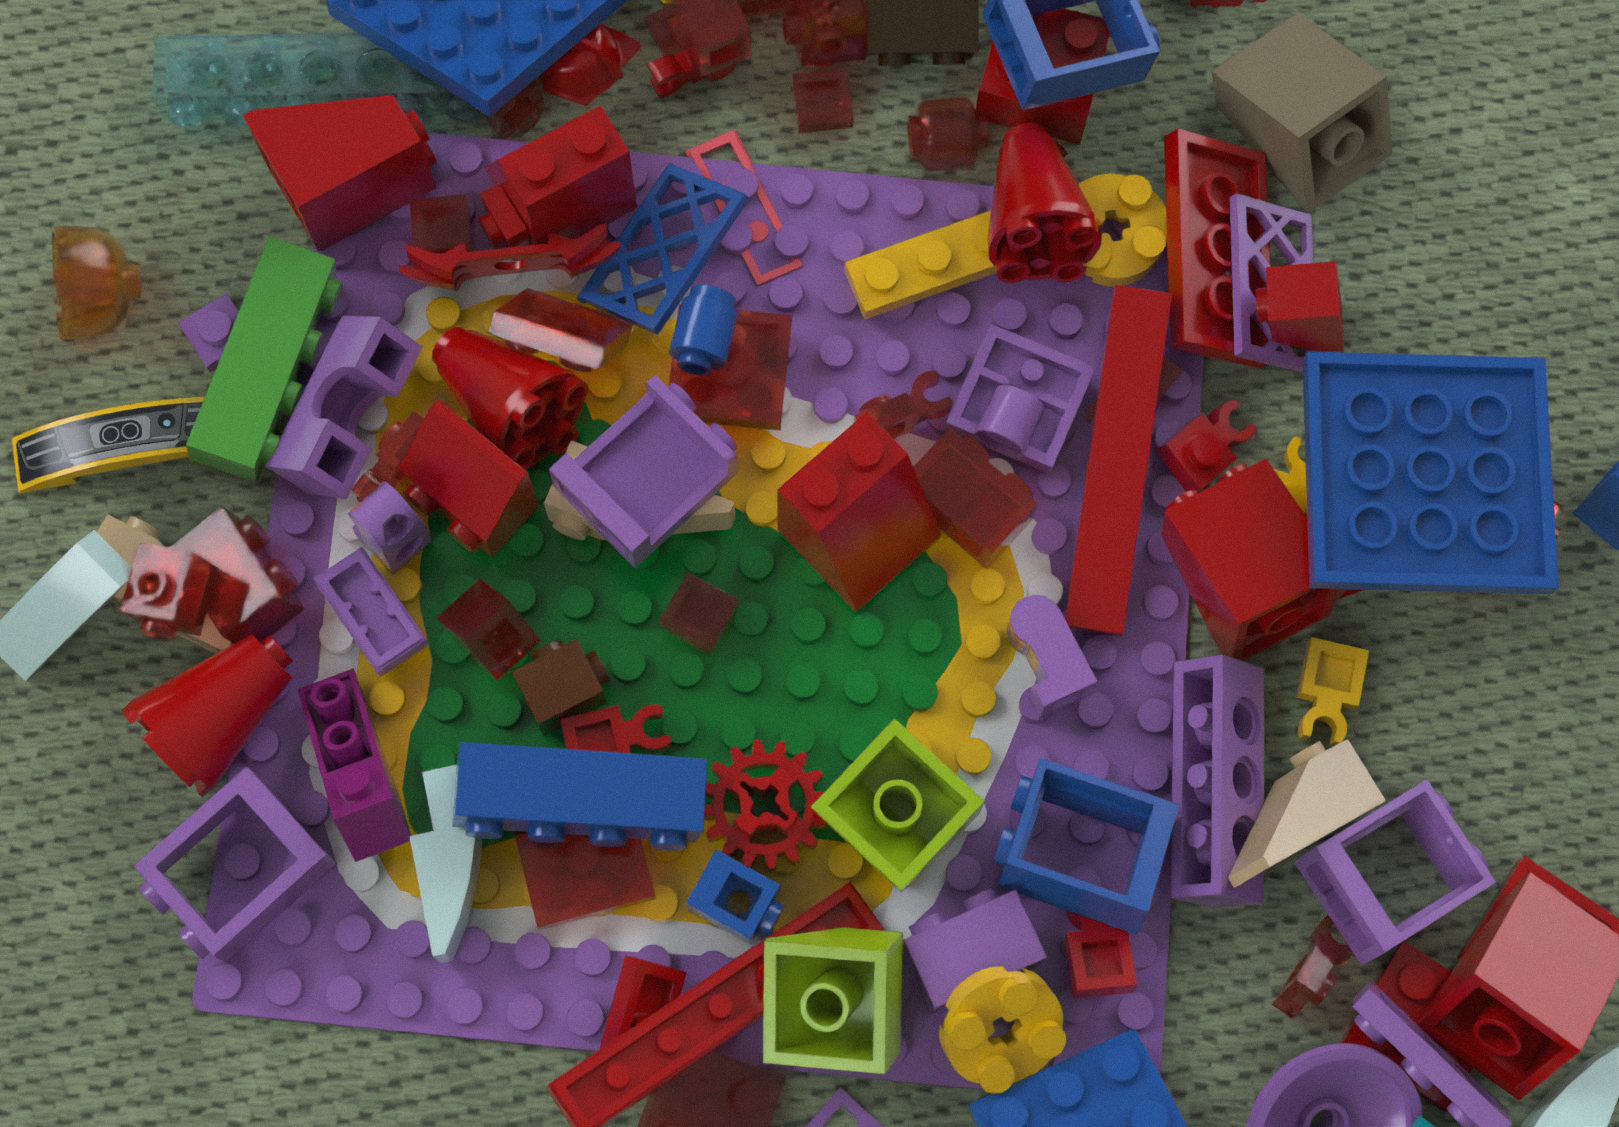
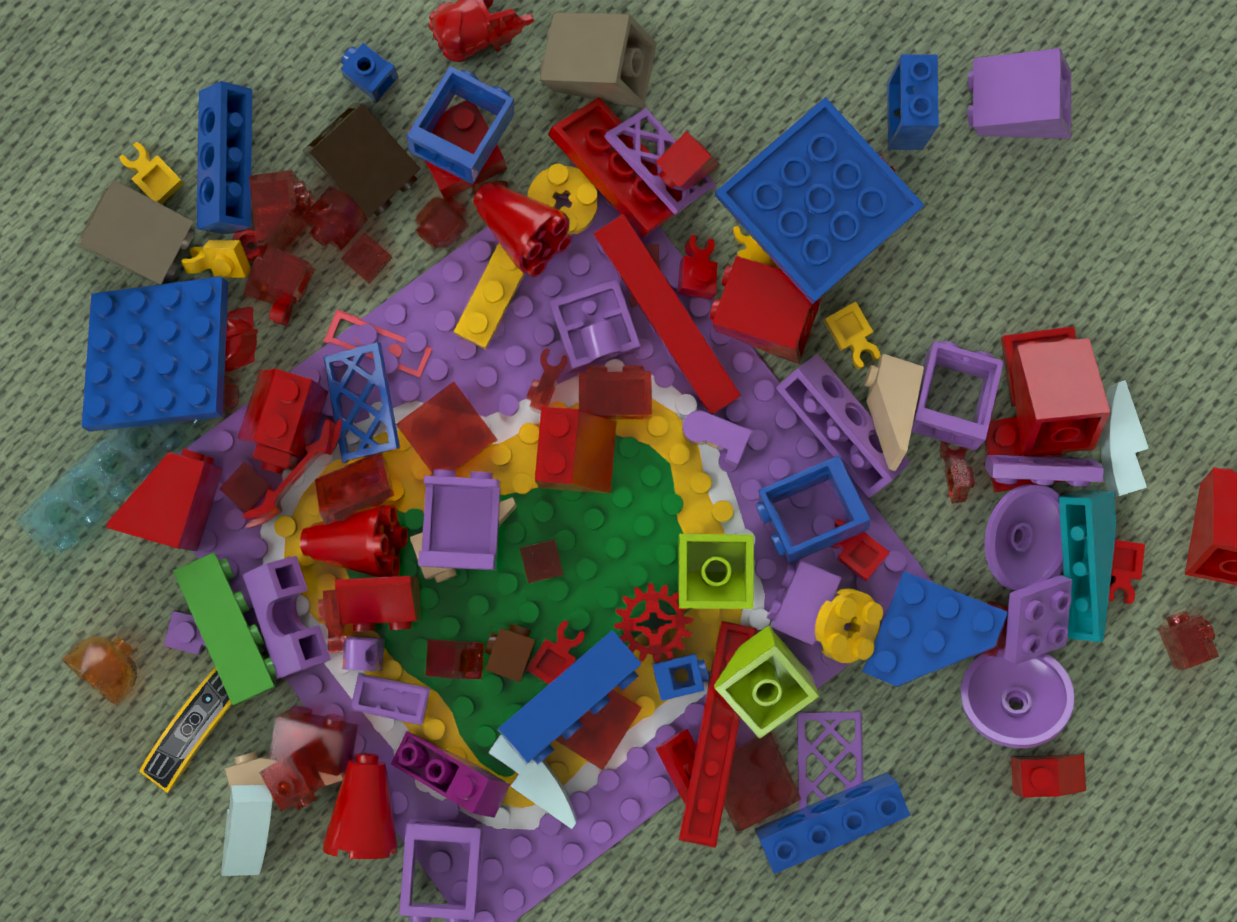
camera: 40 degrees left, 10 degrees up
(704, 330) = (422, 428): blue brick -> none

